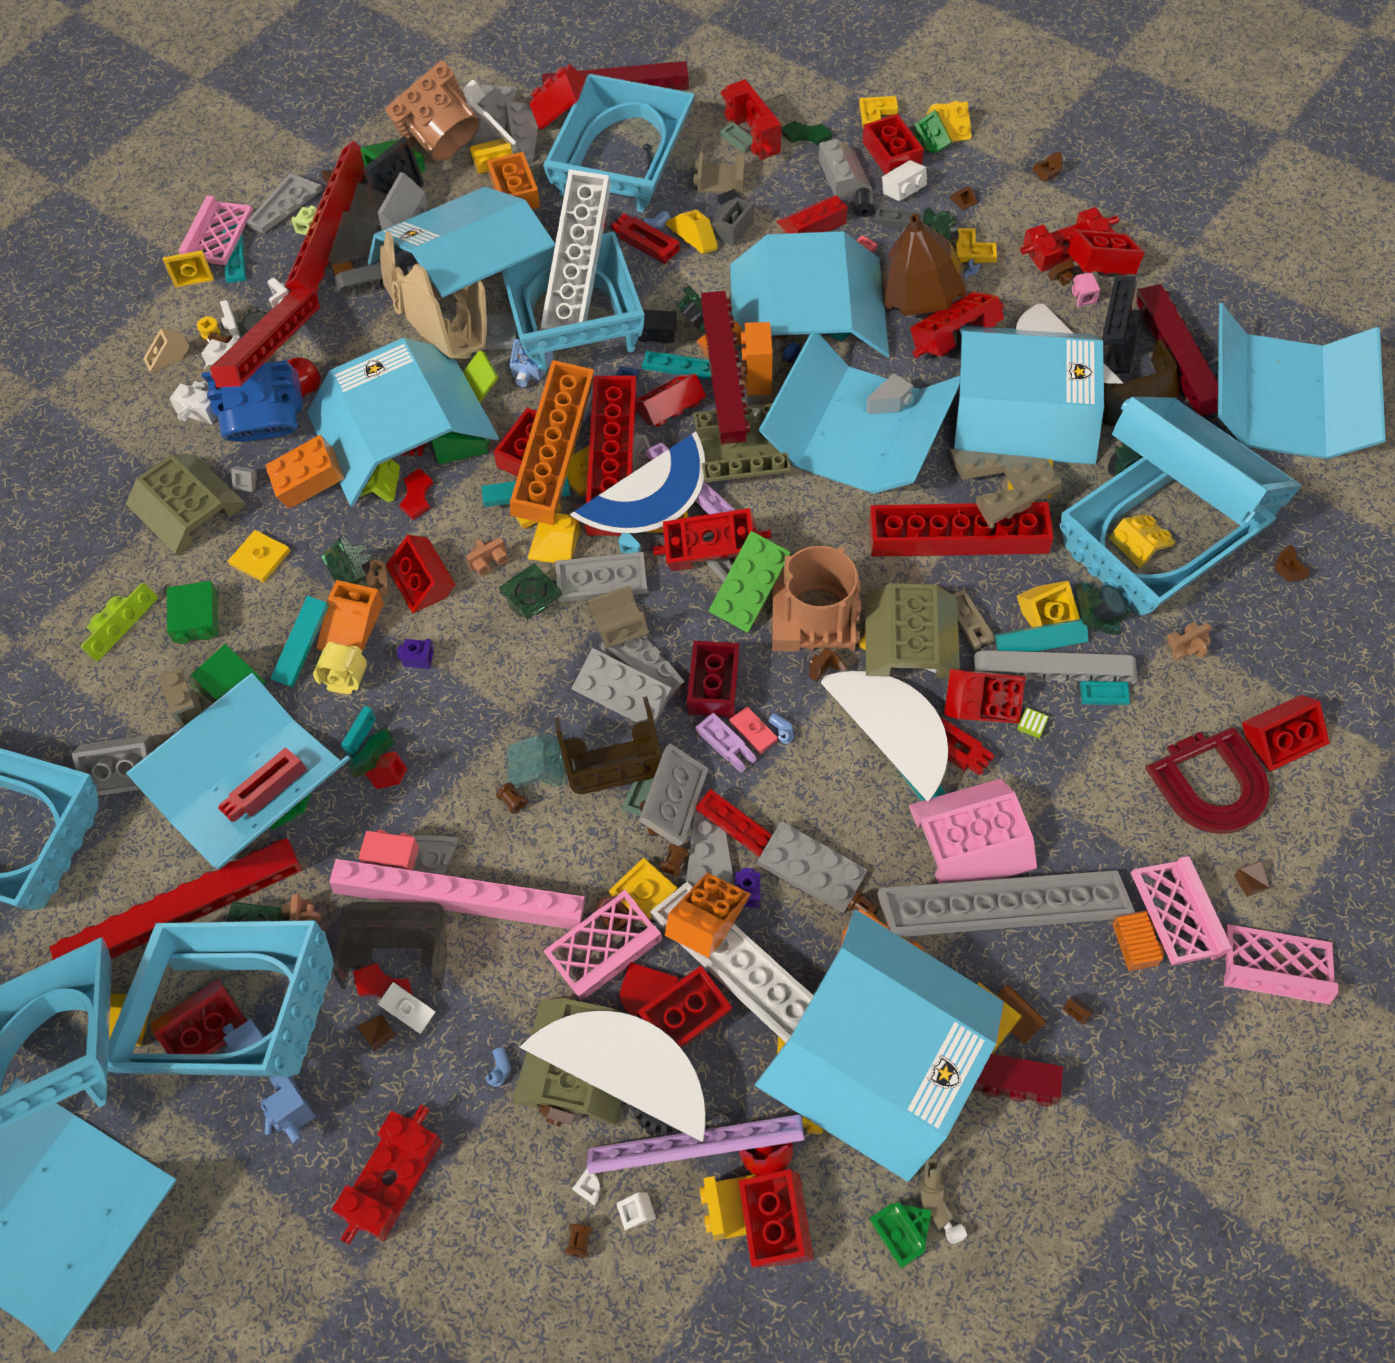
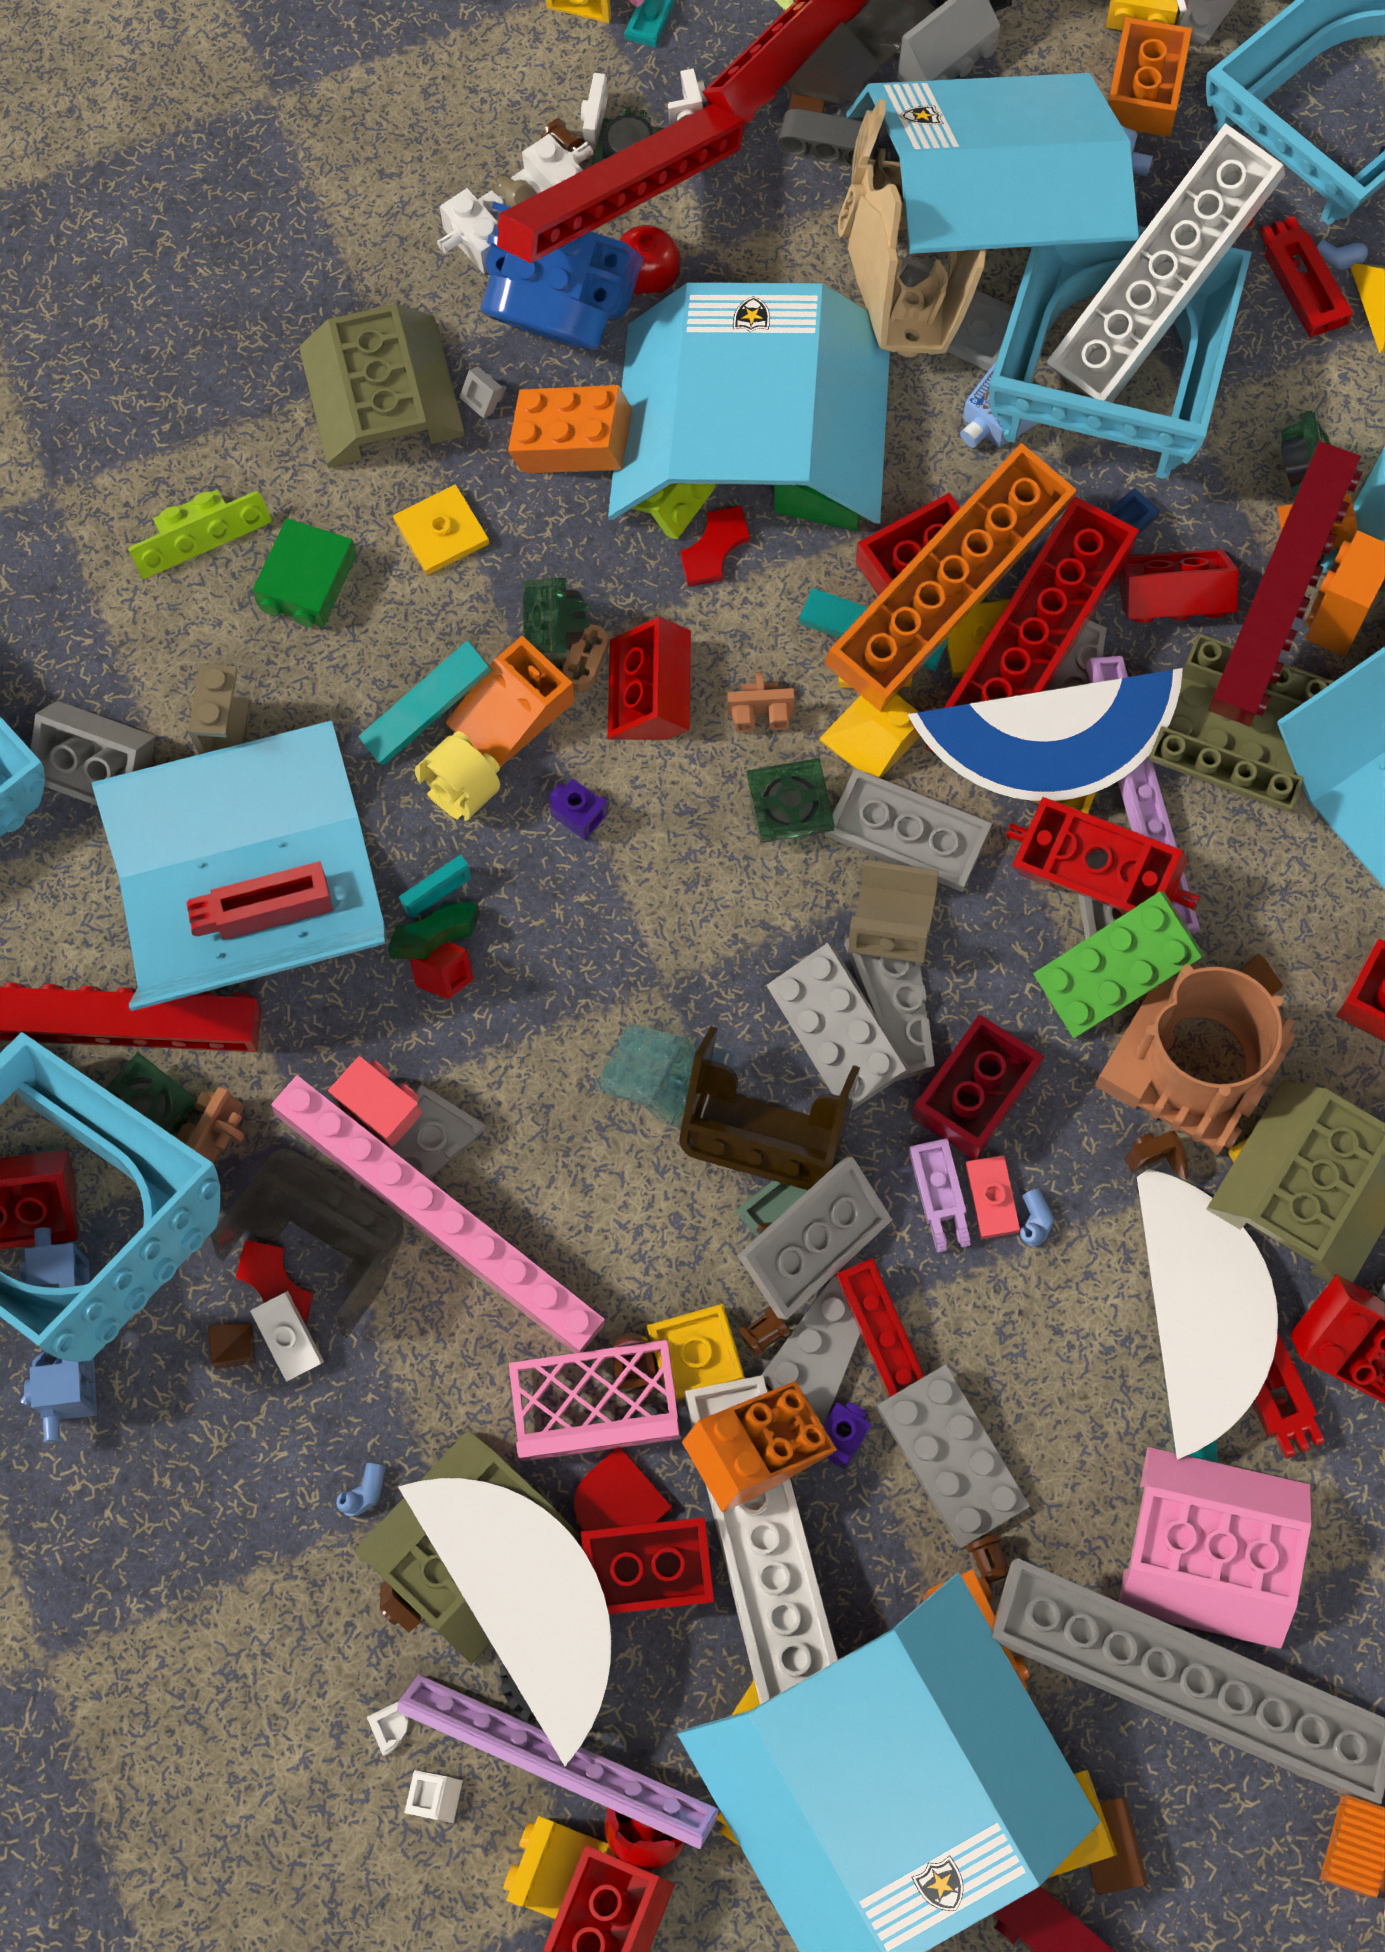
camera: 30 degrees right, 10 degrees up
(166, 349) = (478, 115): tan slope -> none
(206, 326) = (563, 103): yellow wheel -> none
(220, 674) = (293, 700): green slope -> none
(402, 1148) = (101, 1578): red brick -> none
(480, 375) = (910, 398): lime bracket -> none
(511, 798) = (590, 1108): reddish brown bush -> none
(578, 1240) = (335, 1792): reddish brown bush -> none
(628, 544) = (977, 801): medium azure slope -> none
(659, 326) = (1233, 447): black brick -> none
(676, 364) = (1224, 527): teal tile -> none
(1078, 1010) = (1208, 1891): reddish brown slope -> none

